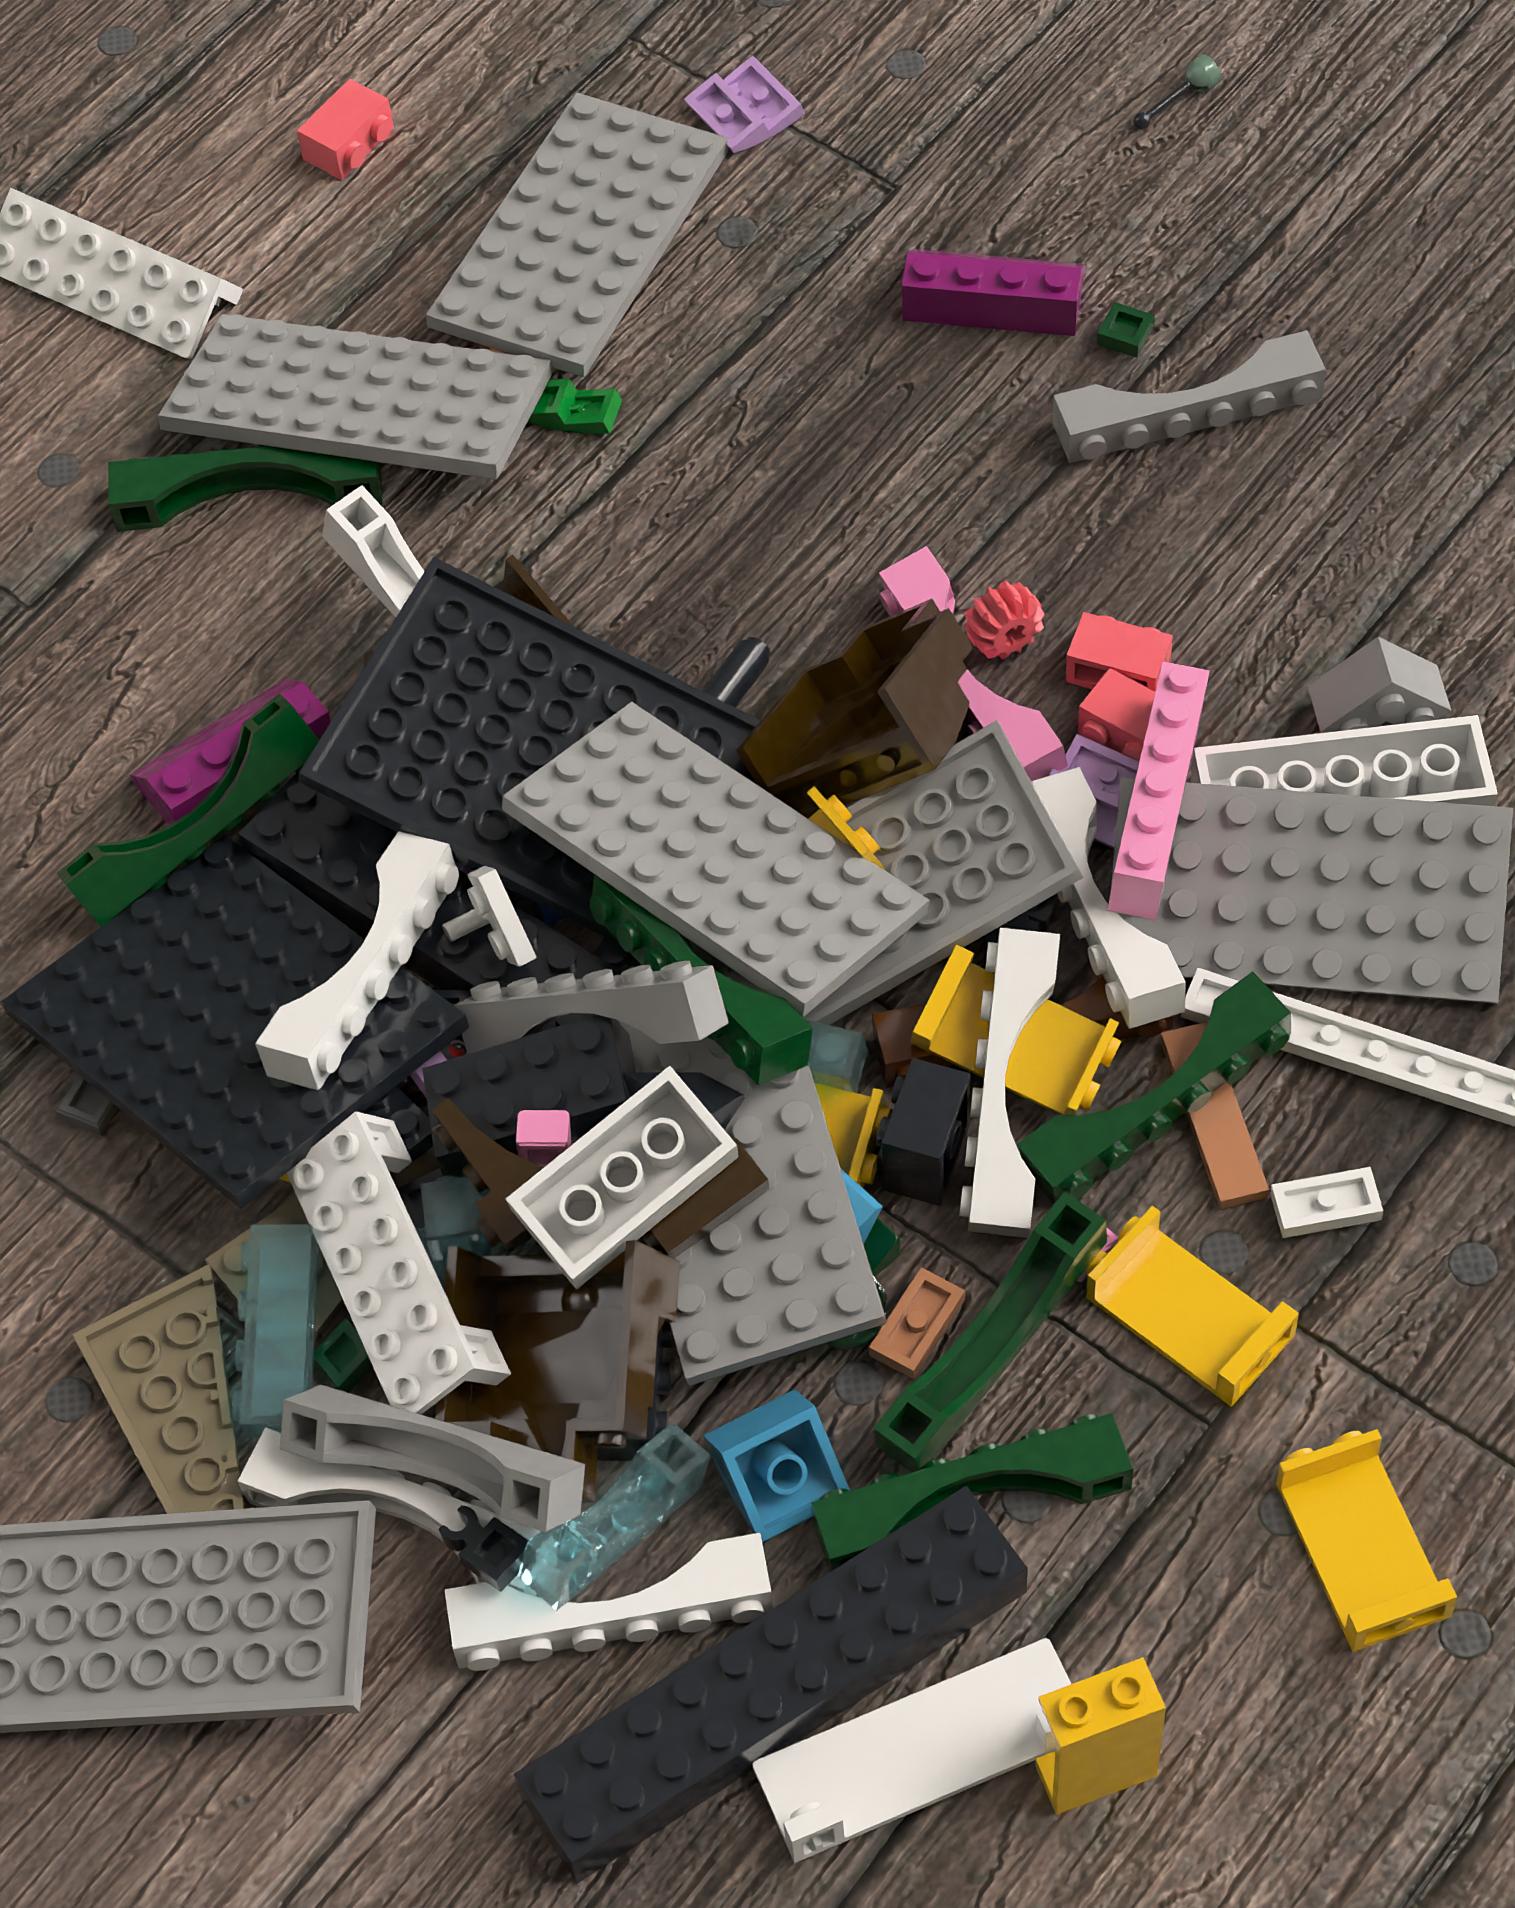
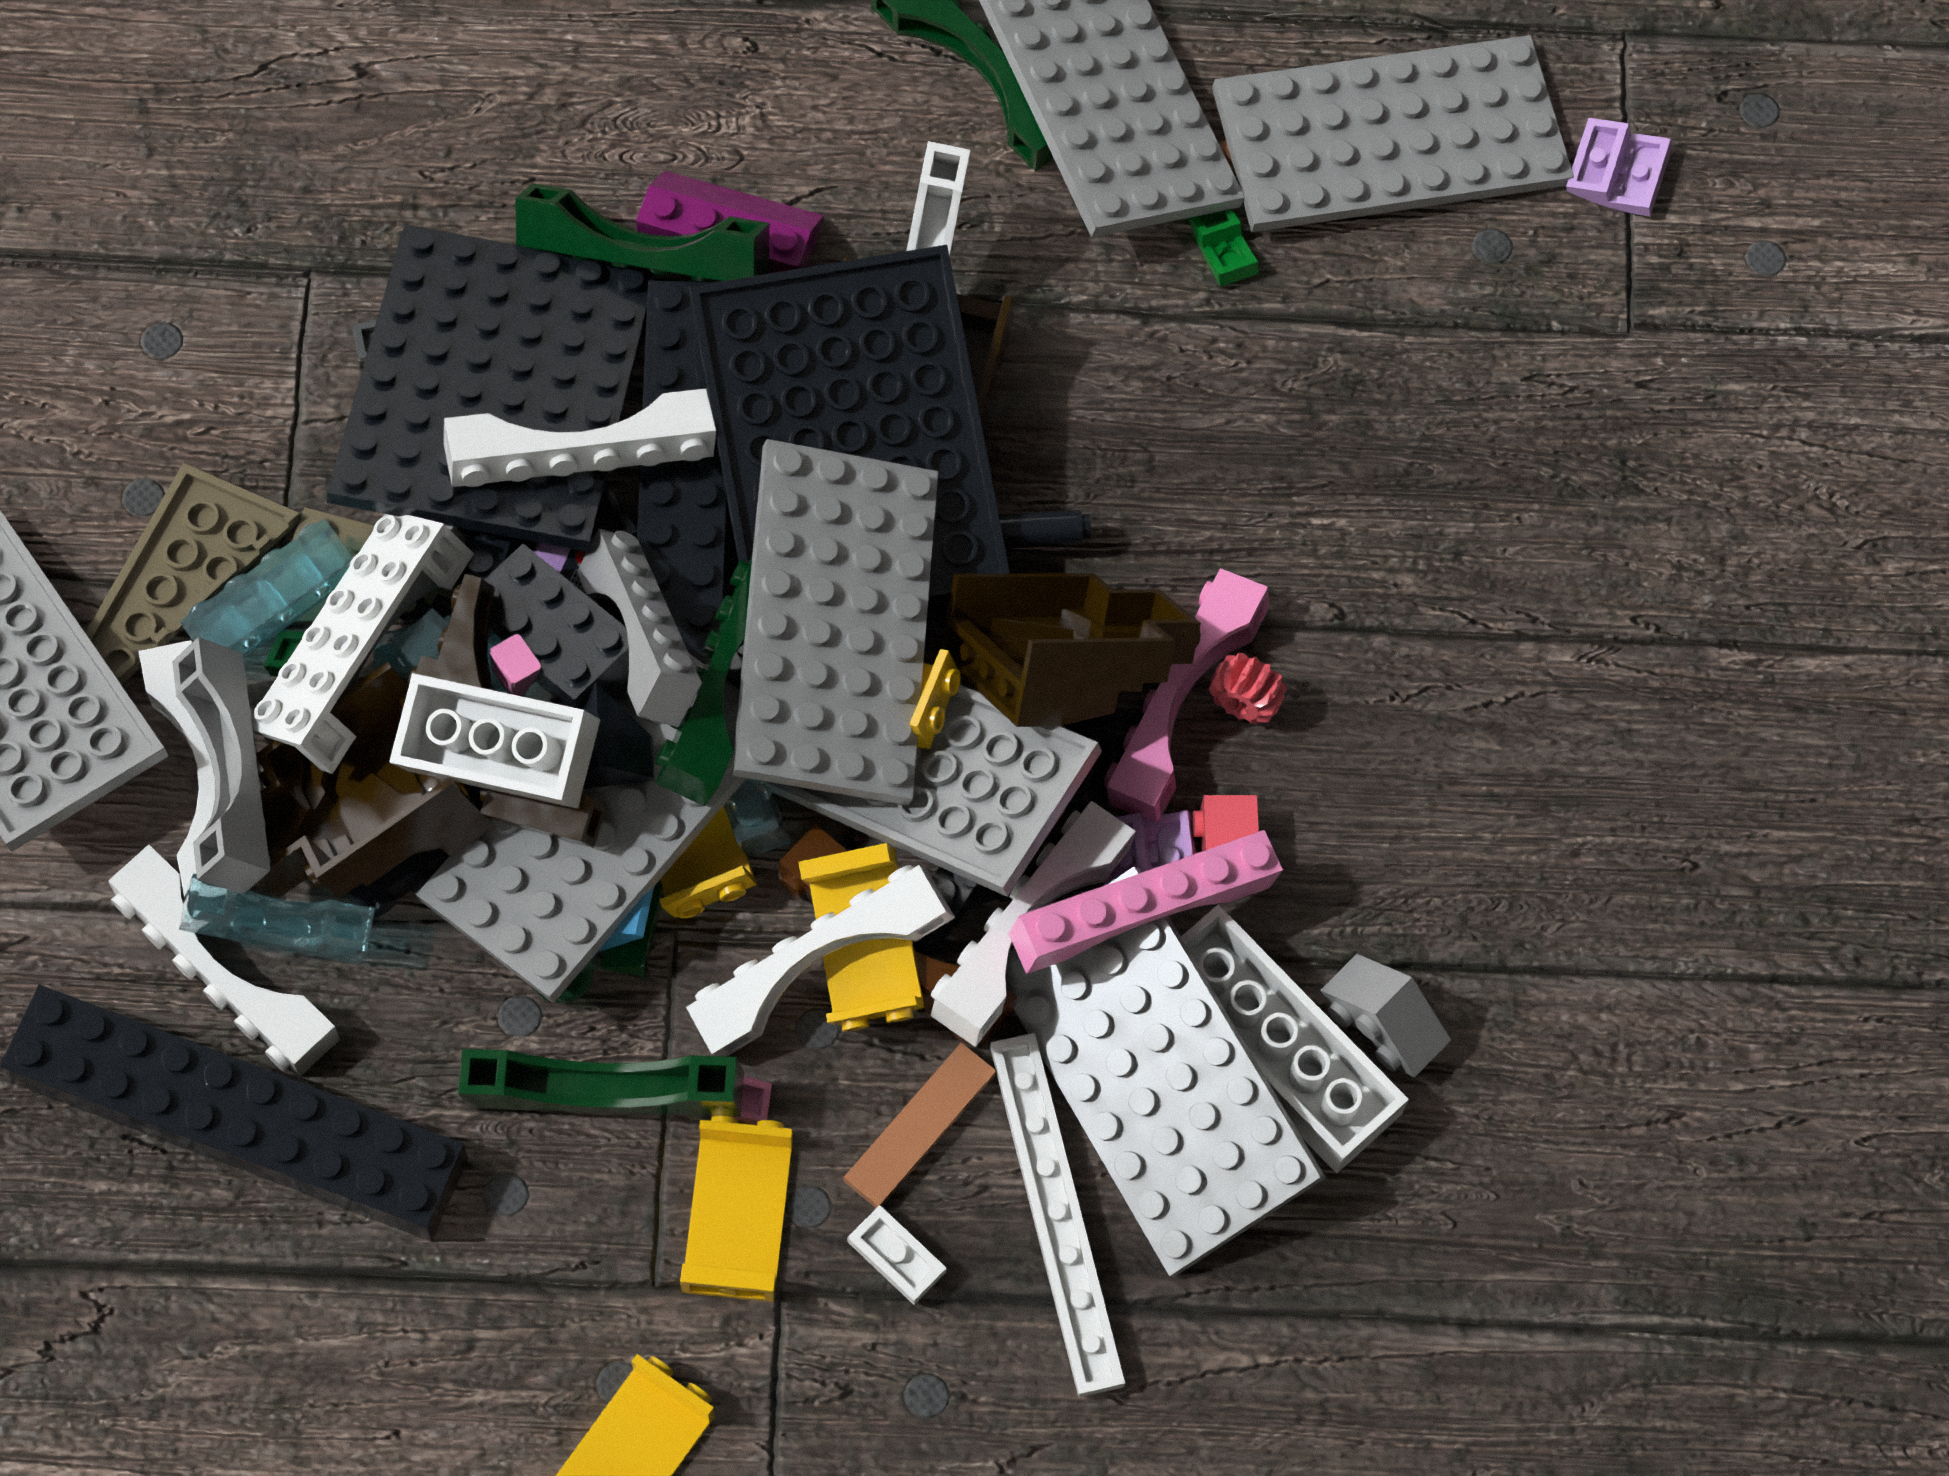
camera: 45 degrees right, 10 degrees up
(487, 1551) = (180, 853): black plate -> none
(493, 907) = (688, 497): white plate -> none
(776, 1463) = (406, 1002): dark azure slope -> none
(912, 1751) = (255, 1247): white bracket -> none
(917, 1323) = (589, 1025): nougat plate -> none
(924, 1131) = (738, 924): black brick -> none
(992, 292) = (1578, 472): magenta slope -> none
(1070, 1462) = (552, 1211): dark green arch -> none
(1079, 1148) = (987, 1095): dark green arch -> none
(1104, 1735) = (311, 1358): yellow panel -> none
(1108, 420) = (1650, 742): light grey arch -> none
(1112, 644) = (1284, 795): coral brick -> none
(1125, 329) = (1613, 599): dark green plate -> none
(1200, 76) = (1926, 490): hinge -> none

